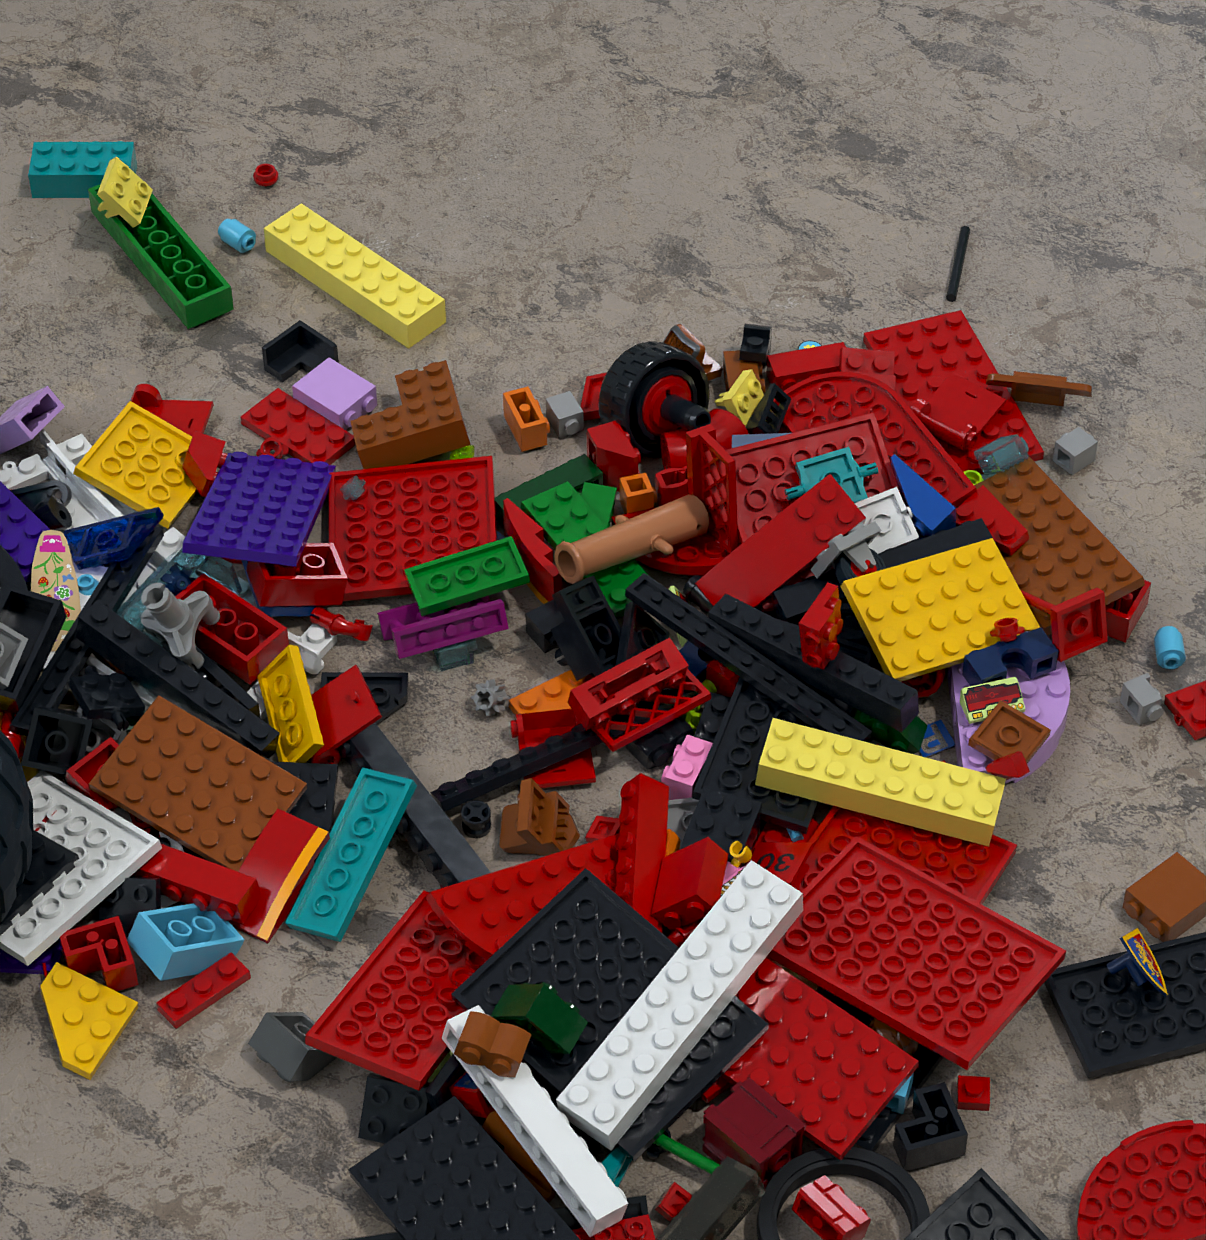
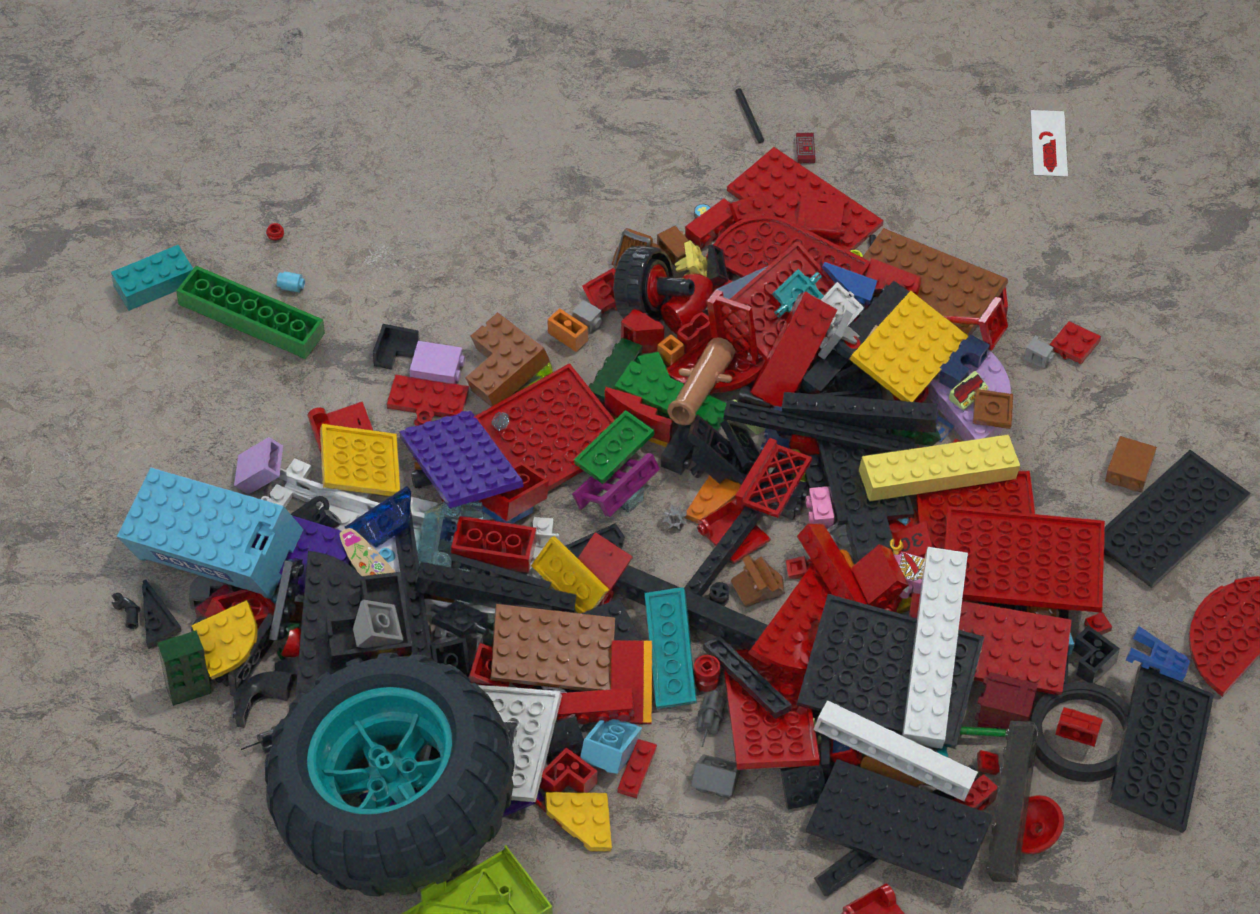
camera: 30 degrees left, 5 degrees up
(123, 193) = (211, 284): light yellow plate -> none
(178, 620) = (476, 553): light grey wheel -> none
(202, 460) = (394, 444): red slope -> none
(337, 624) = (553, 512): red piece -> none
(345, 965) = (710, 714): none -> dark grey piece
(355, 275) = (387, 277): light yellow brick -> none
(378, 908) = (706, 673): none -> red wheel
(418, 936) = (747, 677): none -> black plate
(492, 1044) = (855, 718): dark orange brick -> none
(542, 1014) = (862, 689): dark green brick -> none
(665, 670) = (752, 496): red brick -> none
(756, 343) = (673, 221): black brick -> none
(820, 628) = (868, 391): red plate -> none
(1002, 454) = (868, 233): clear light blue brick -> none
(1004, 327) = (805, 148): none -> dark red tile
(1006, 629) = (954, 344): red plate -> none
(1009, 766) = (1006, 426): red slope -> none
(1029, 1181) = (1161, 656): none -> blue wing
(1039, 387) = (854, 179): dark orange plate -> none
(1075, 450) = (901, 212): light grey brick -> none
(1139, 962) = (1137, 510): shield -> none
(1169, 647) = (1033, 314): medium azure brick -> none

